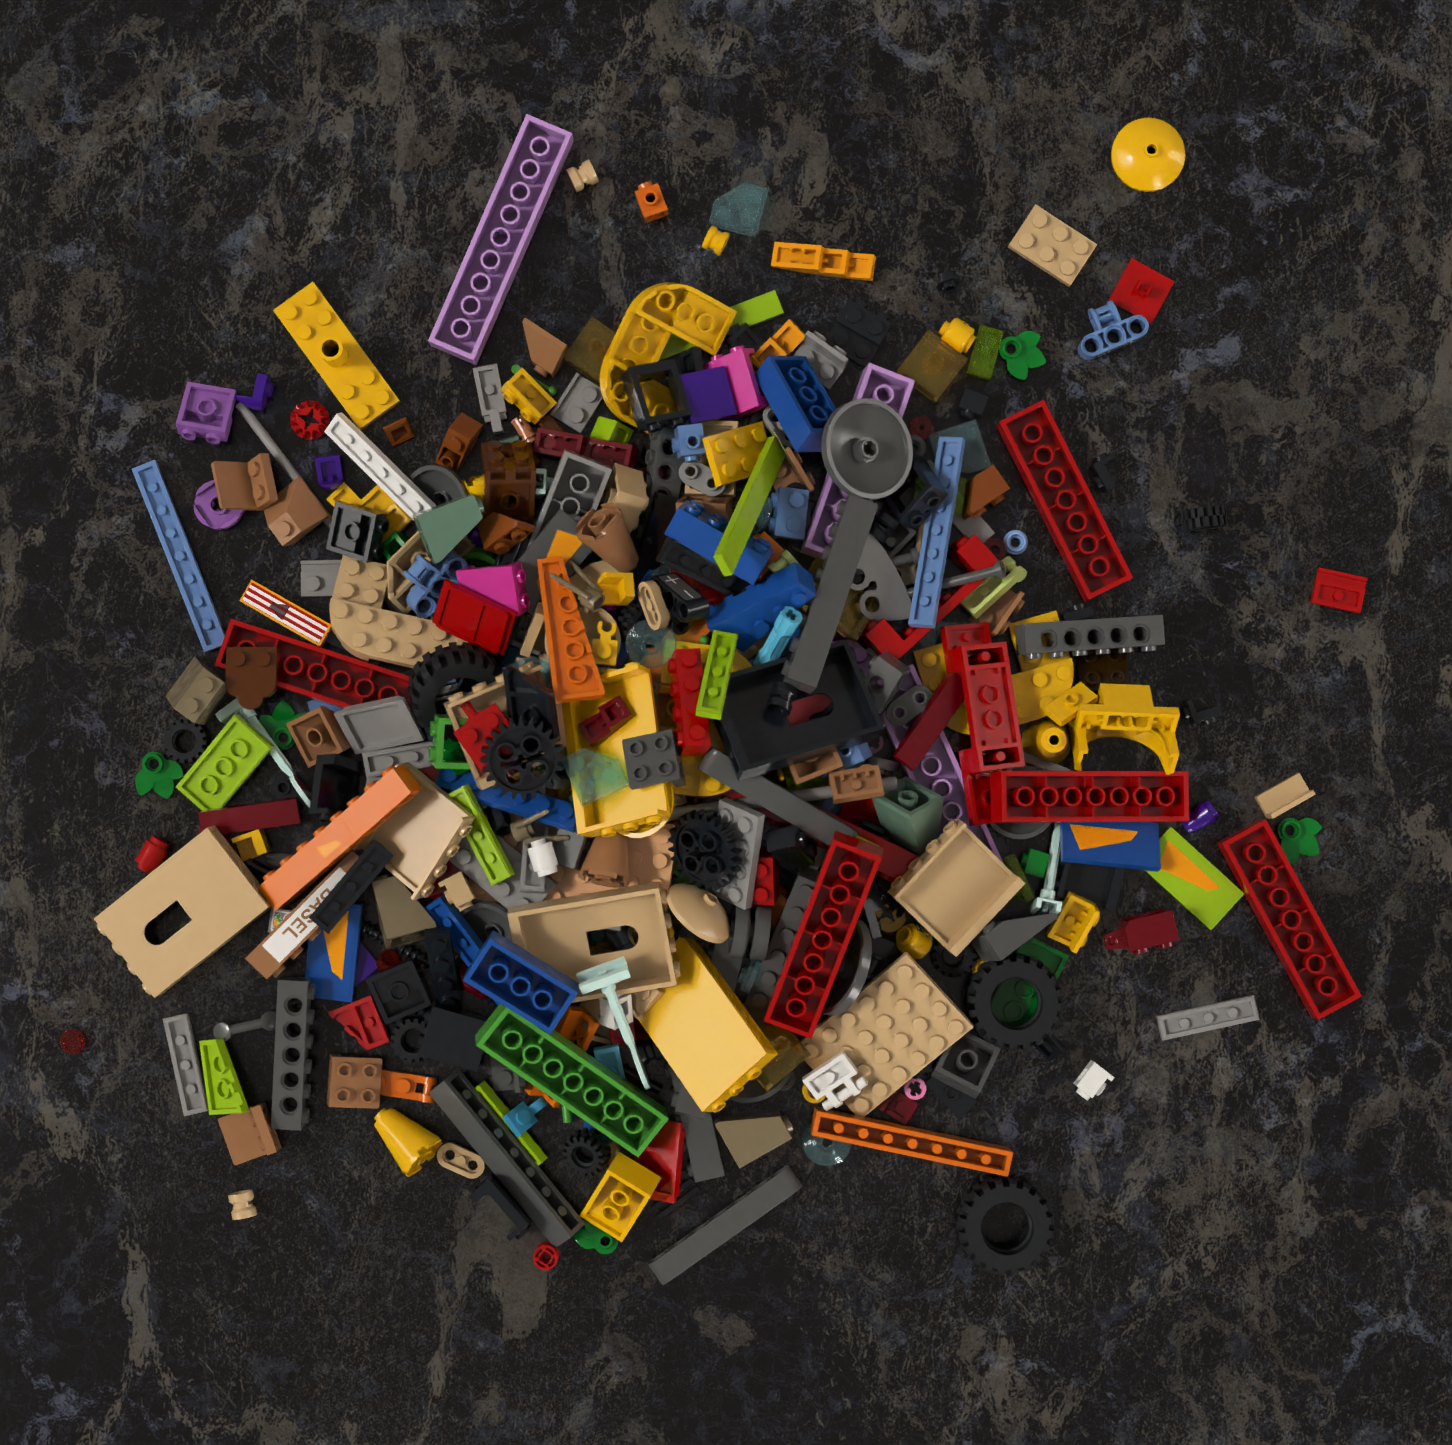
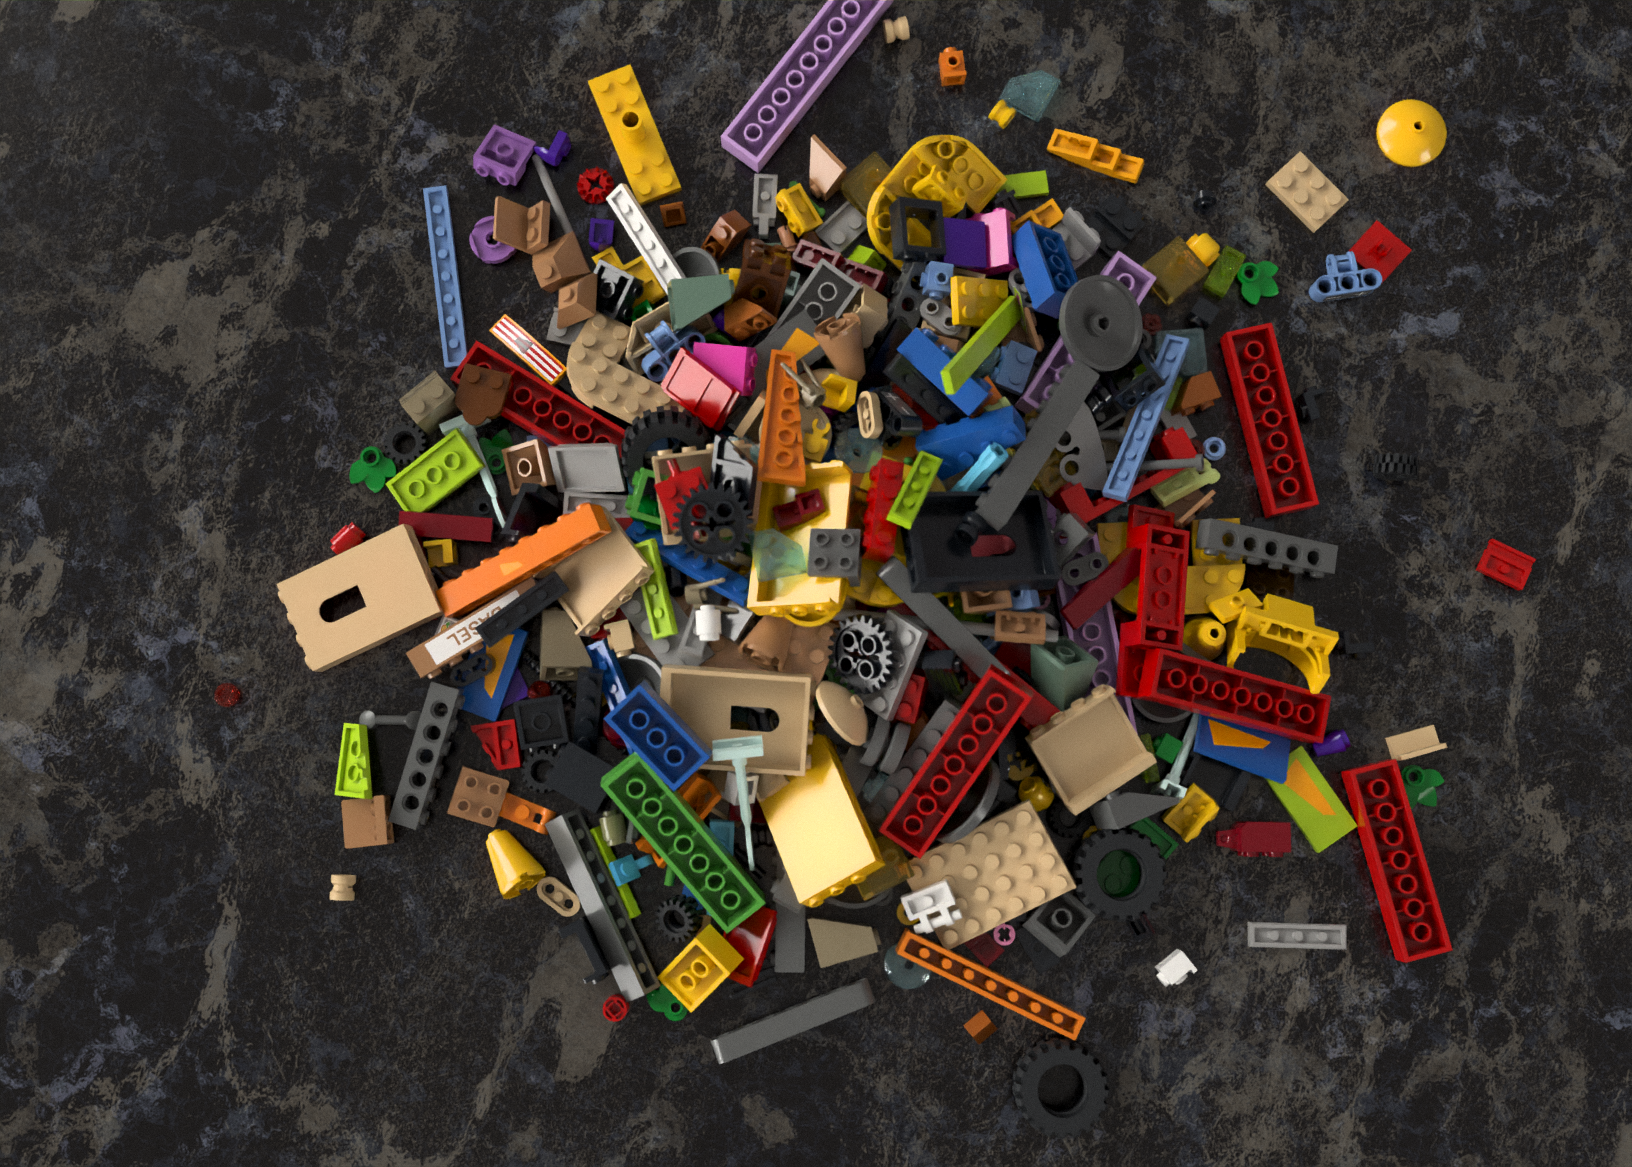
camera: 15 degrees right, 5 degrees down
(186, 1064) = (326, 742): light grey tile -> none
(320, 960) = (471, 665): none -> black beam
(323, 550) = (577, 301): none -> medium nougat slope
(498, 1080) = (613, 827): none -> olive brick
(671, 343) = (942, 188): none -> yellow bracket
(912, 1185) = (980, 1027): none -> dark orange slope

